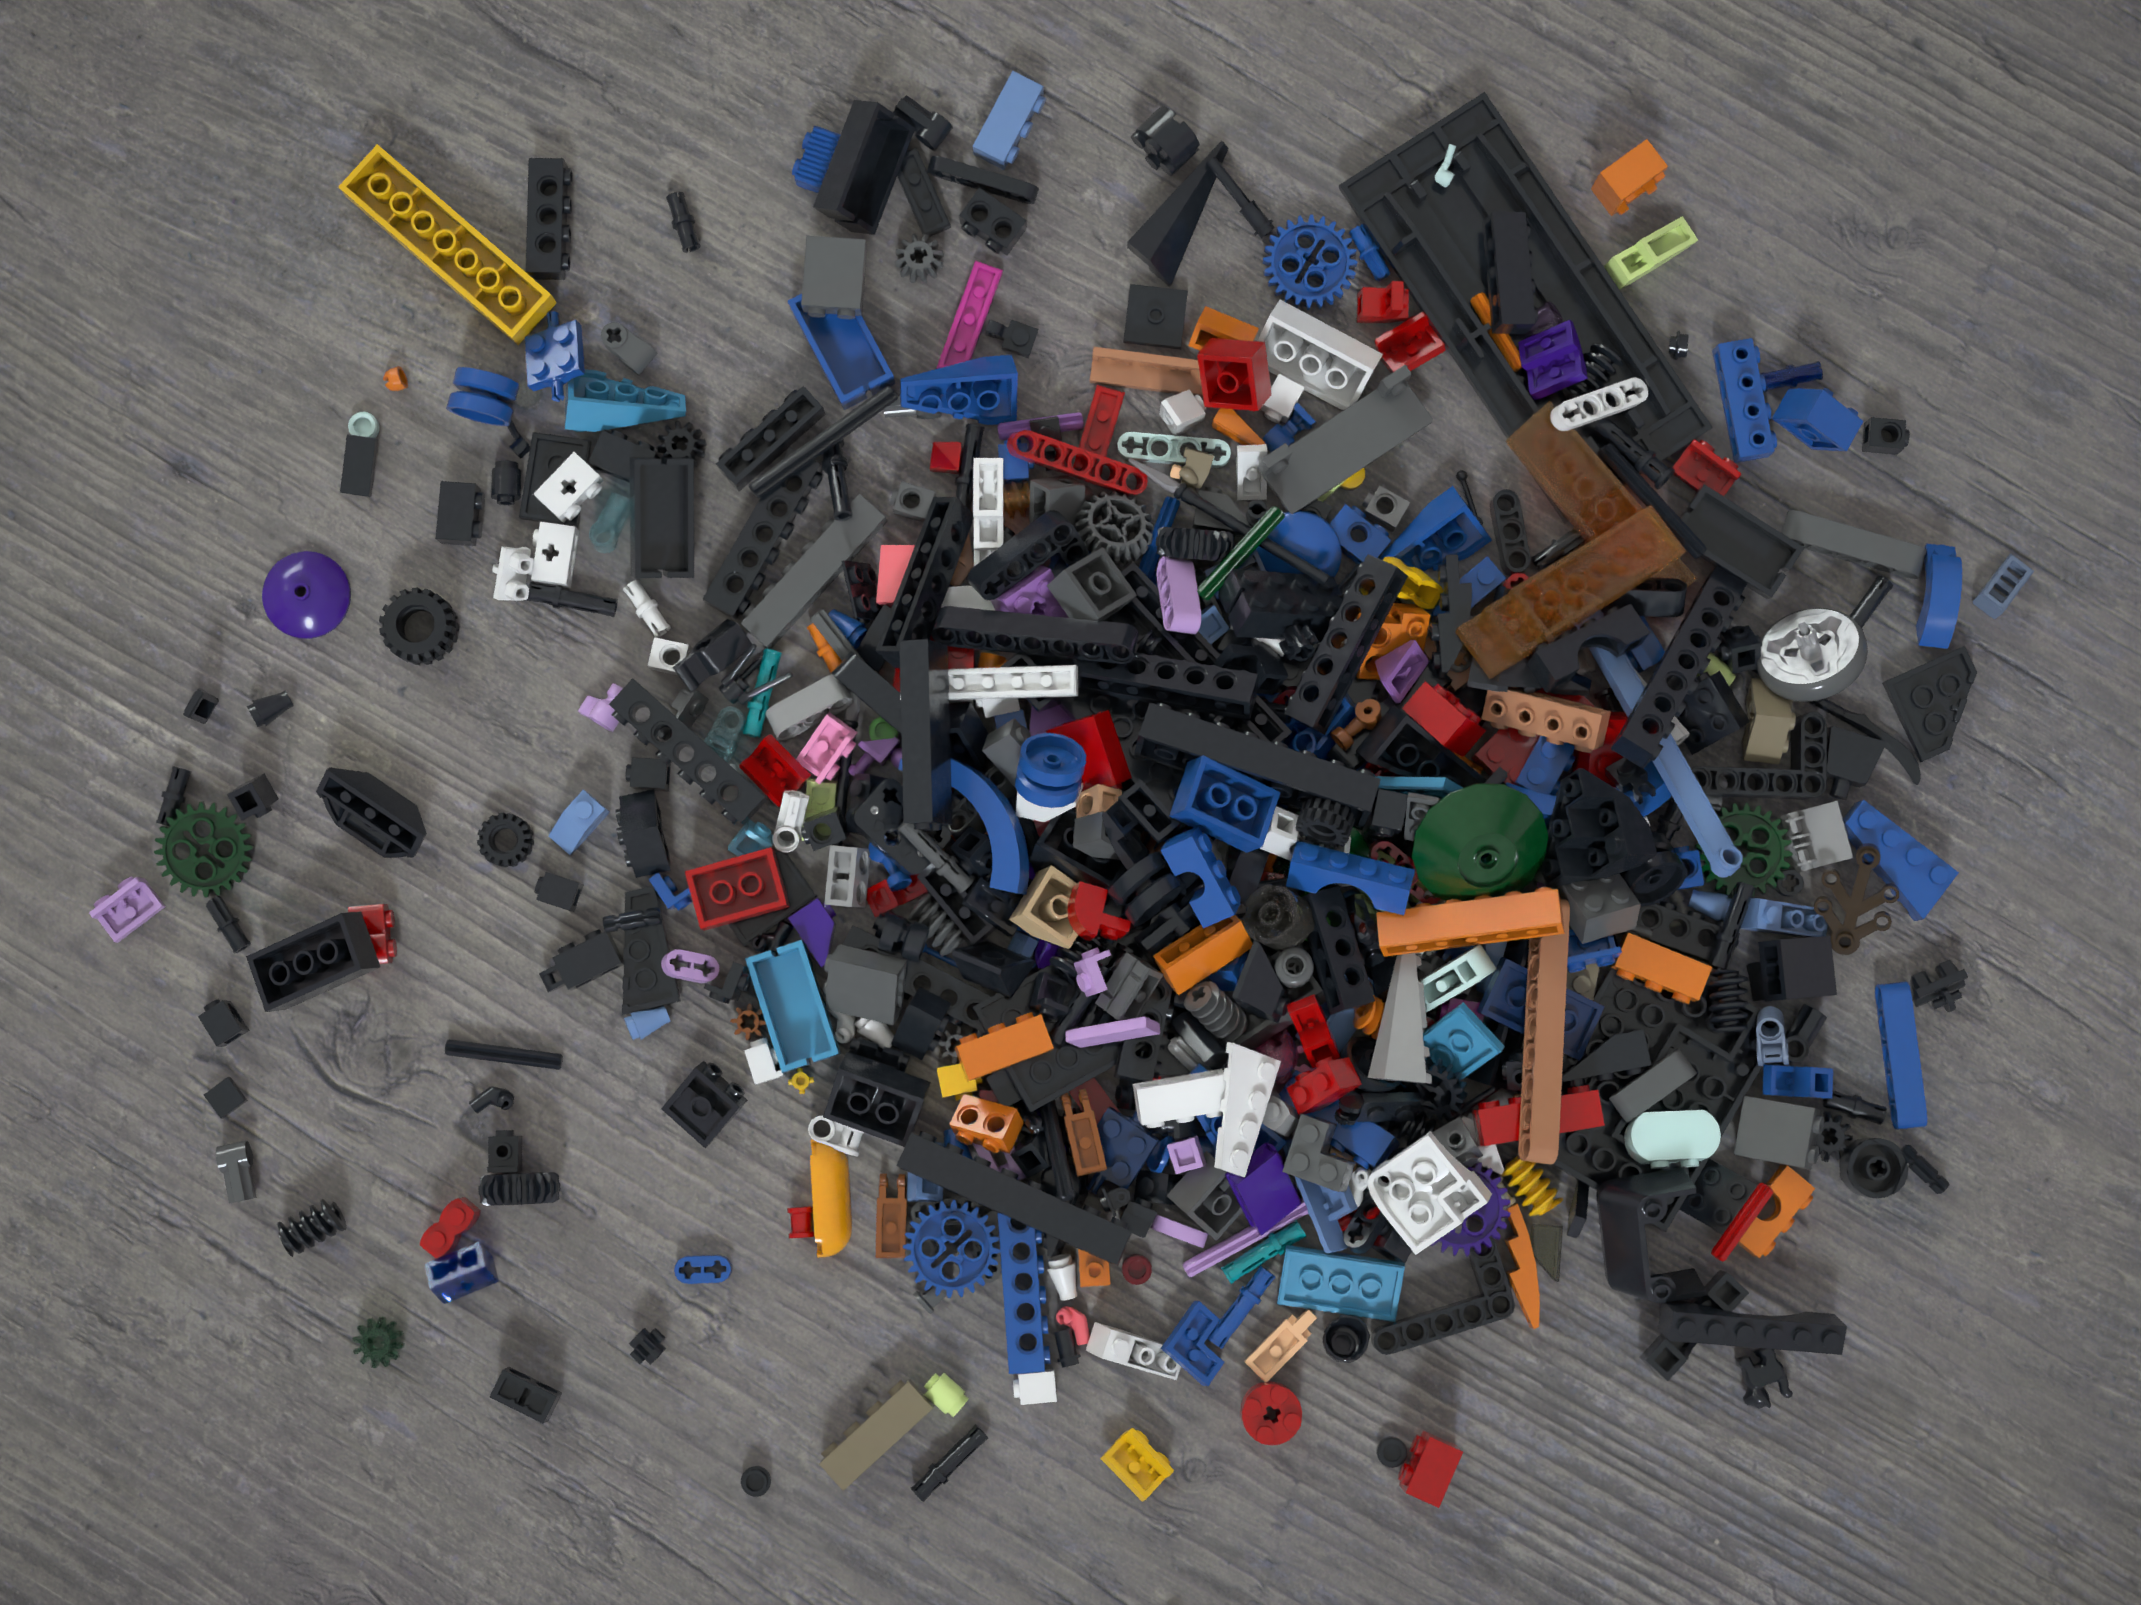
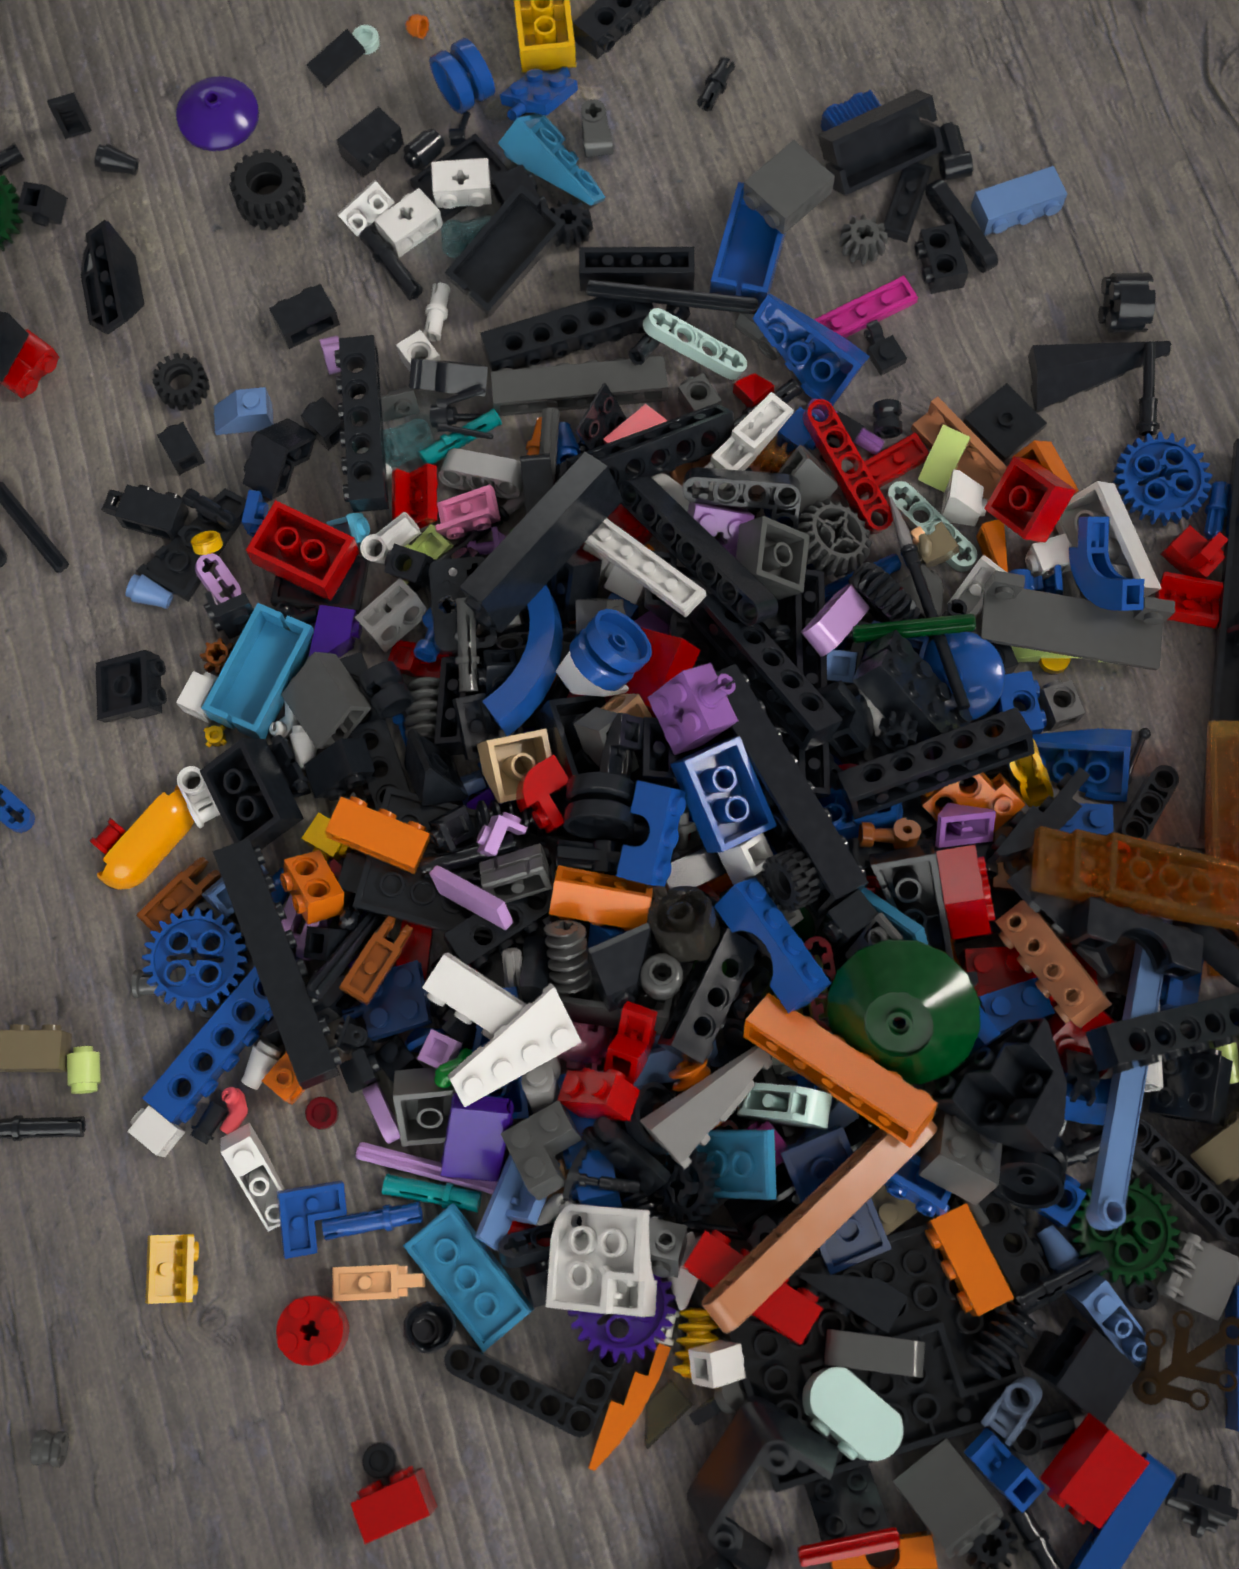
camera: 45 degrees right, 10 degrees down
(548, 702) = (304, 316): none -> black brick
(658, 947) = (206, 542): none -> yellow tile
(876, 467) = (693, 347): none -> light aqua beam
(1069, 394) = (887, 418): none -> black wheel
(1139, 390) = (943, 457): none -> yellowish green slope
(1152, 763) = (694, 707): none -> medium lavender brick
(1207, 1161) = (441, 1078): none -> green arm
(1332, 390) = (1095, 573): none -> blue arch
(1379, 1140) = (602, 1182): none -> black piece
(1558, 1186) = (716, 1363): none -> white brick
(1582, 1197) = (730, 1396): none -> dark grey tile
(1854, 1030) = (1093, 1472): none -> red brick

